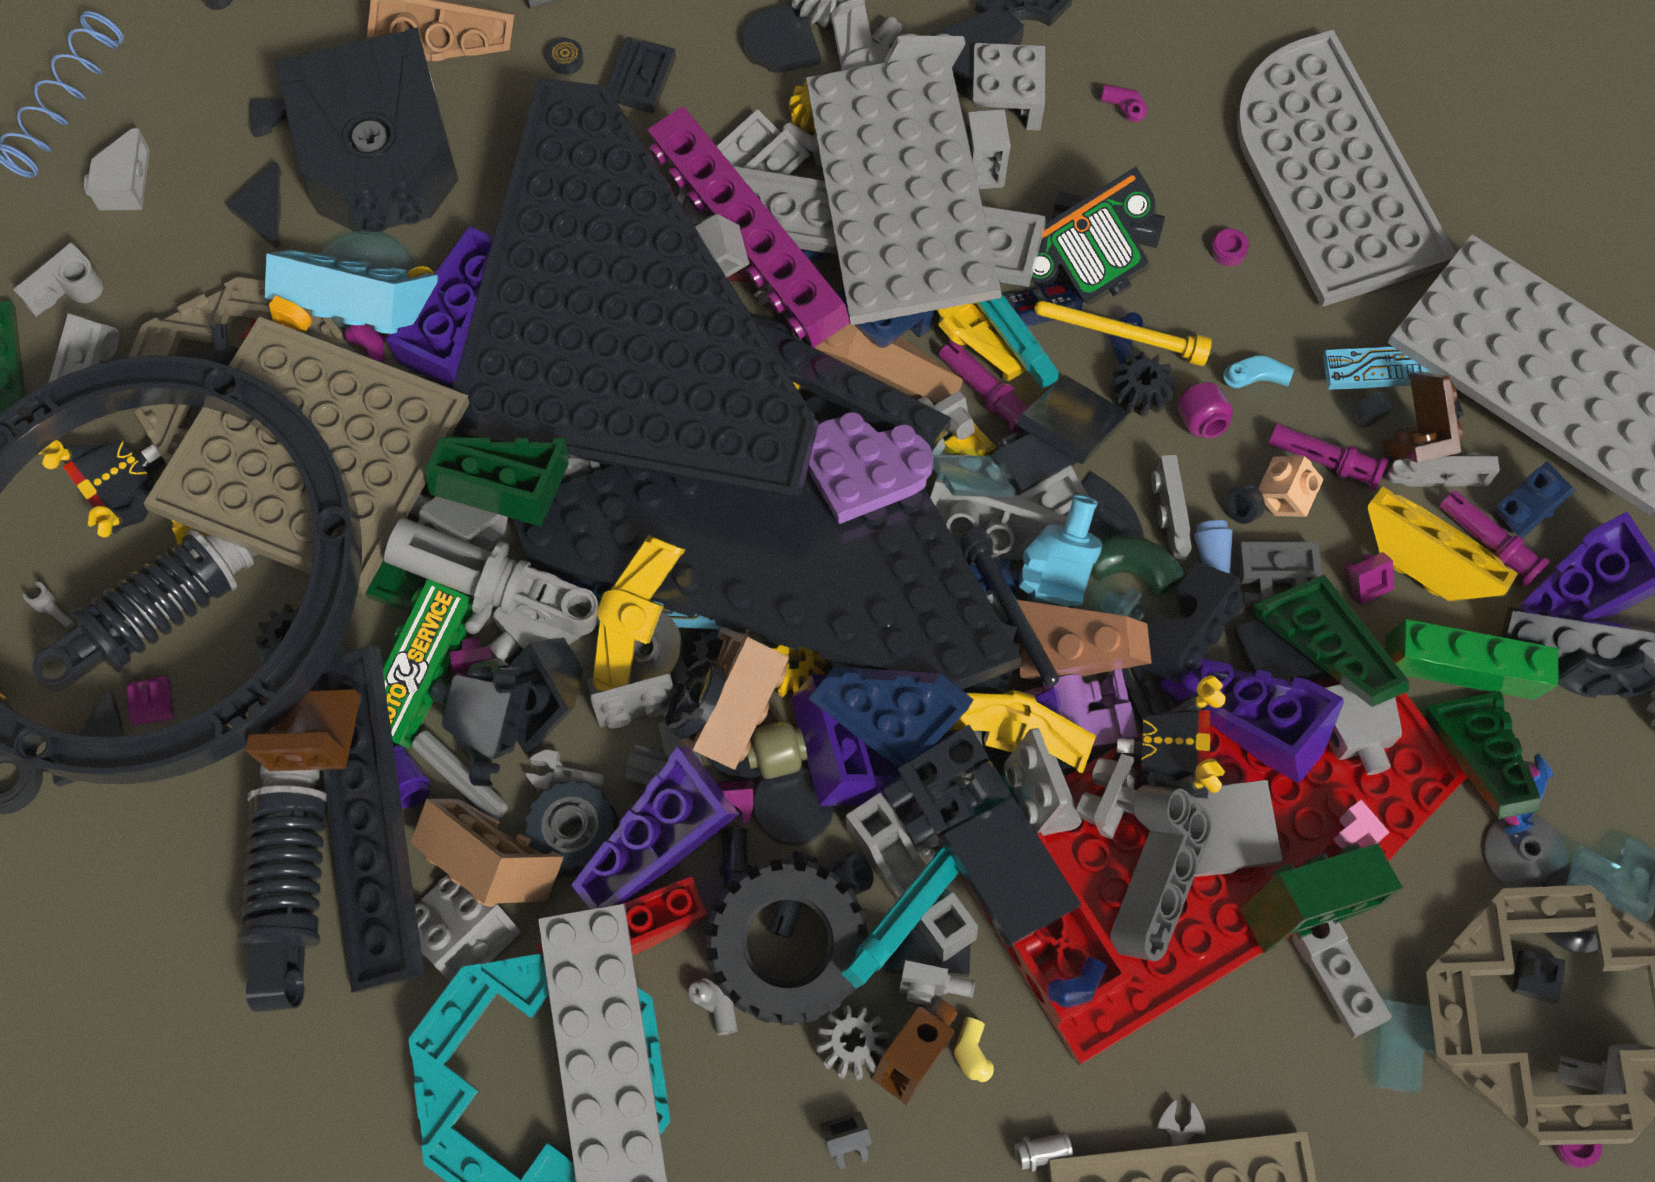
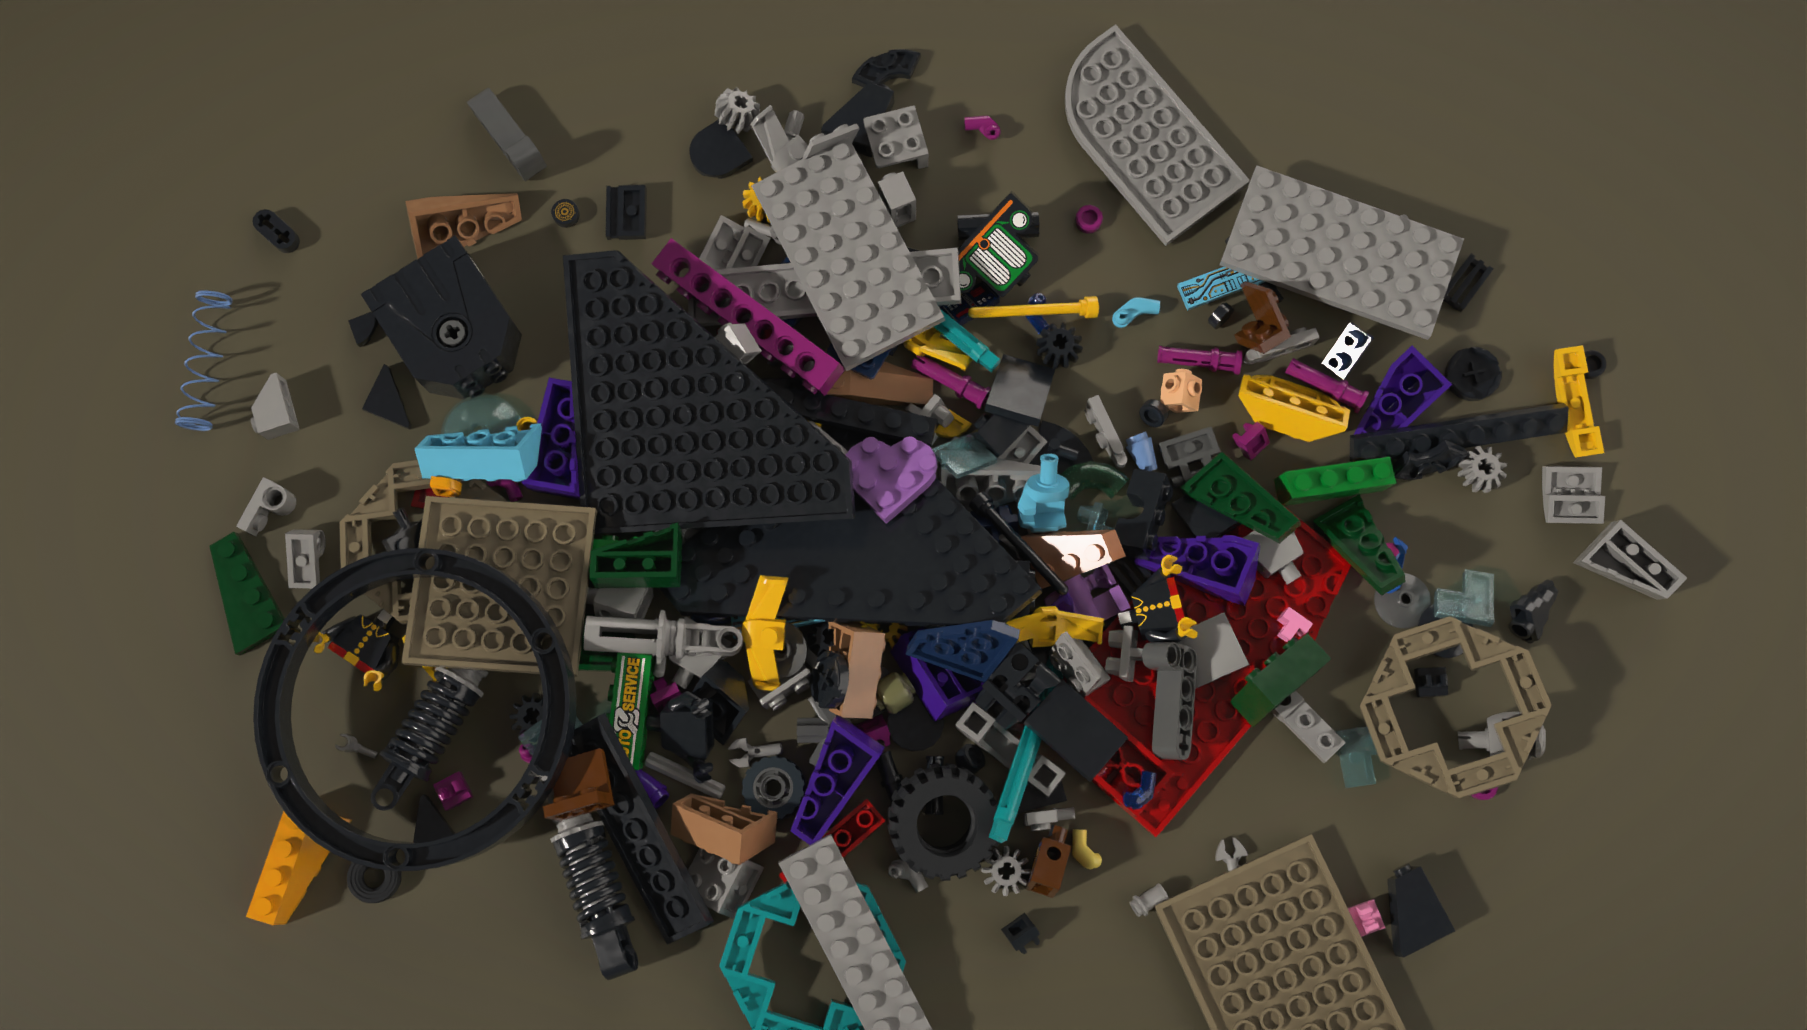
camera: 15 degrees left, 10 degrees up
(1205, 410) = (1107, 352): magenta head -> none

